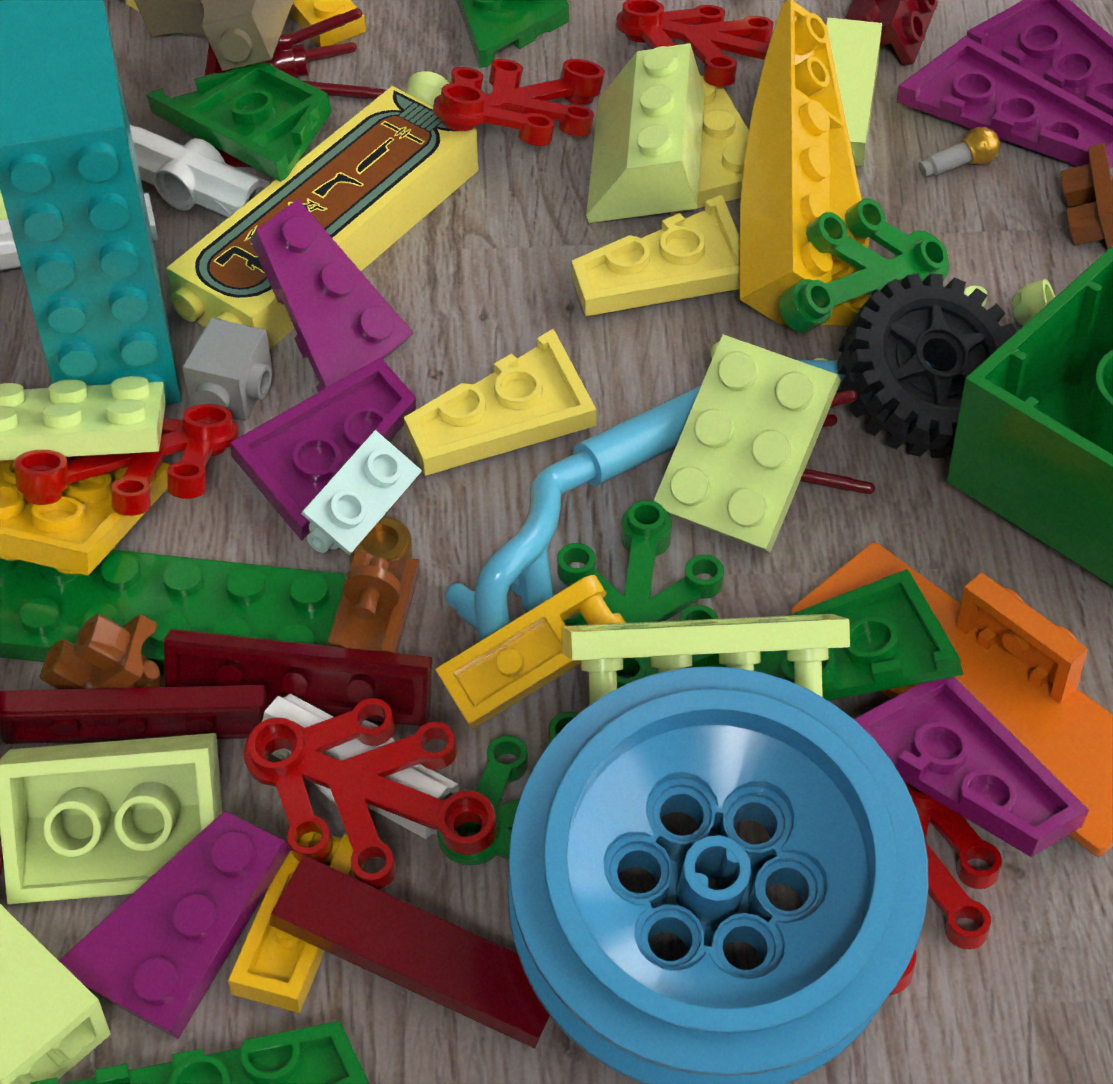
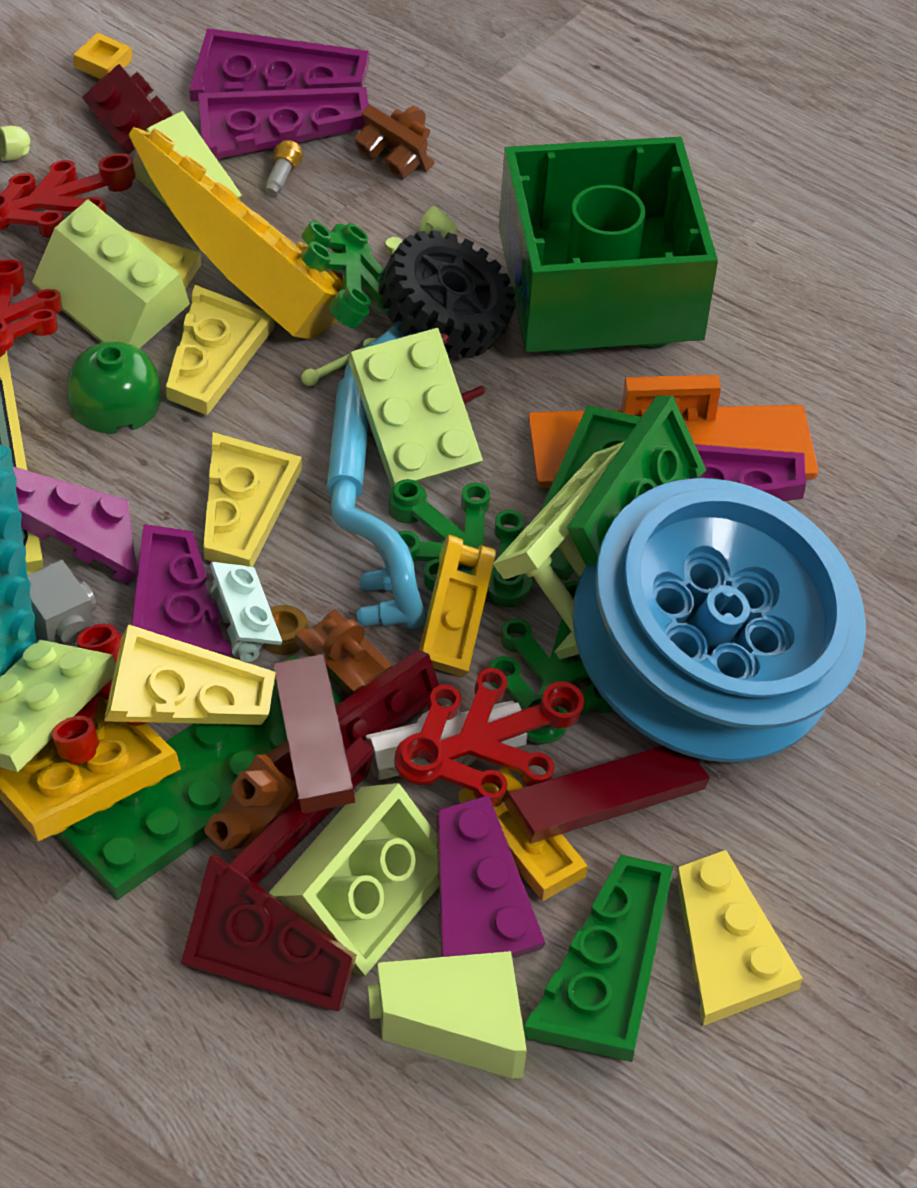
camera: 55 degrees left, 0 degrees up
(179, 503) = (183, 683): none -> light yellow wing
(216, 642) = (313, 734): none -> tile
(535, 231) = (113, 387): none -> green cylinder
(860, 657) = (651, 456): none -> green wing

